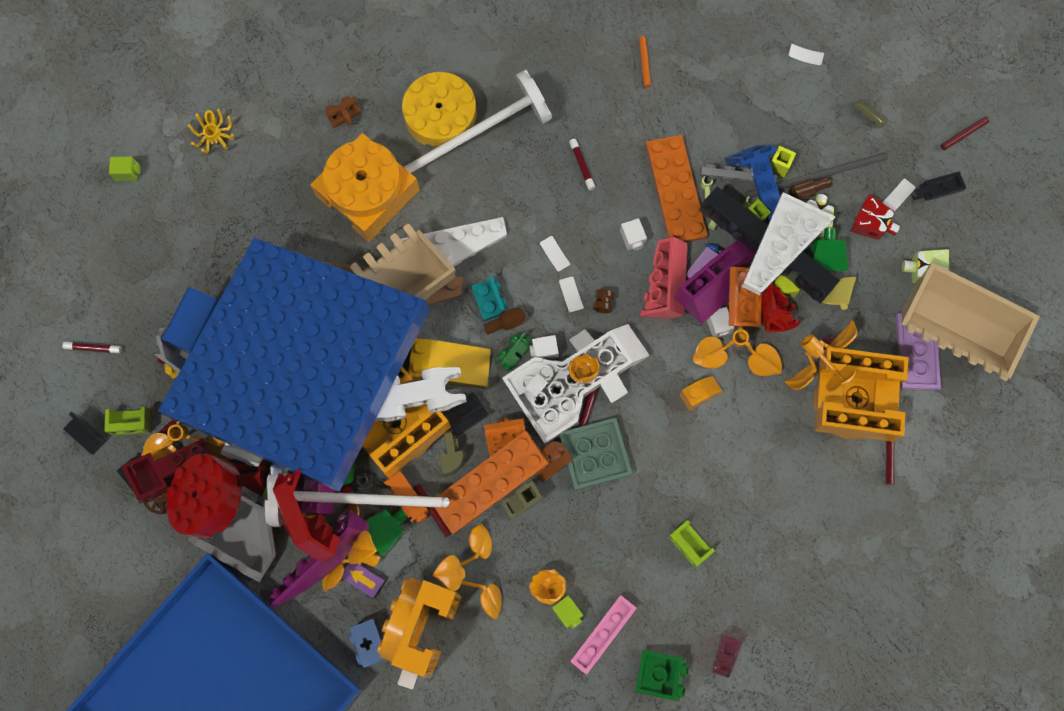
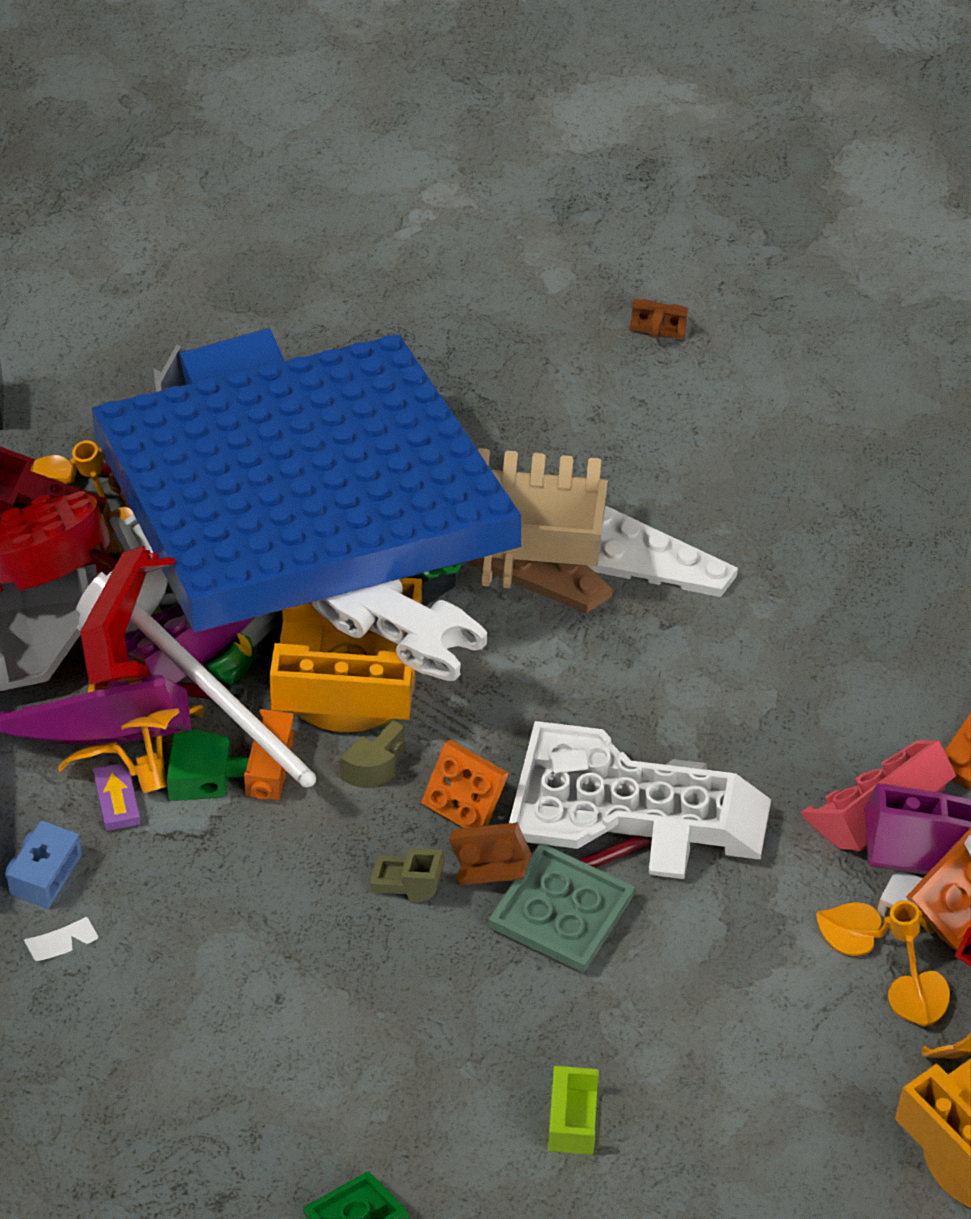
camera: 40 degrees right, 25 degrees down
(92, 347) = (96, 330): dark red bar -> none
(124, 168) = (335, 190): lime brick -> none
(128, 421) = (45, 427): lime panel -> none
(211, 130) = (479, 227): yellow animal -> none
(367, 202) = (598, 399): light orange piece -> none
(408, 623) = (119, 859): light orange piece -> none
(420, 492) = (282, 808): dark red bar -> none
(438, 108) = (783, 400): yellow piece -> none
(451, 573) = (223, 842): light orange plant -> none
(465, 415) = (437, 724): black plate -> none
(472, 360) = (502, 673): yellow slope -> none
(489, 299) = (618, 639): teal bracket -> none
(491, 481) = (389, 815): orange plate -> none
(507, 320) = (613, 674): reddish brown arm -> none
(517, 344) = (597, 710): green hinge -> none
(532, 97) = (916, 461): white piece -> none
(544, 348) = (632, 737): white brick -> none
(548, 586) = (328, 989): light orange hair -> none
(554, 253) = (763, 659): white sticker -> none
(568, 612) = (321, 1043): lime brick -> none
(571, 294) = (734, 718): white sticker -> none
(582, 165) = (910, 594): dark red bar -> none
(584, 369) = (647, 780): light orange hair -> none
(603, 301) = (769, 751): reddish brown wheel -> none
(603, 634) = (337, 1110): bright pink plate -> none
(633, 235) = (892, 713): white brick -> none
(700, 392) = (785, 954): light orange slope -> none

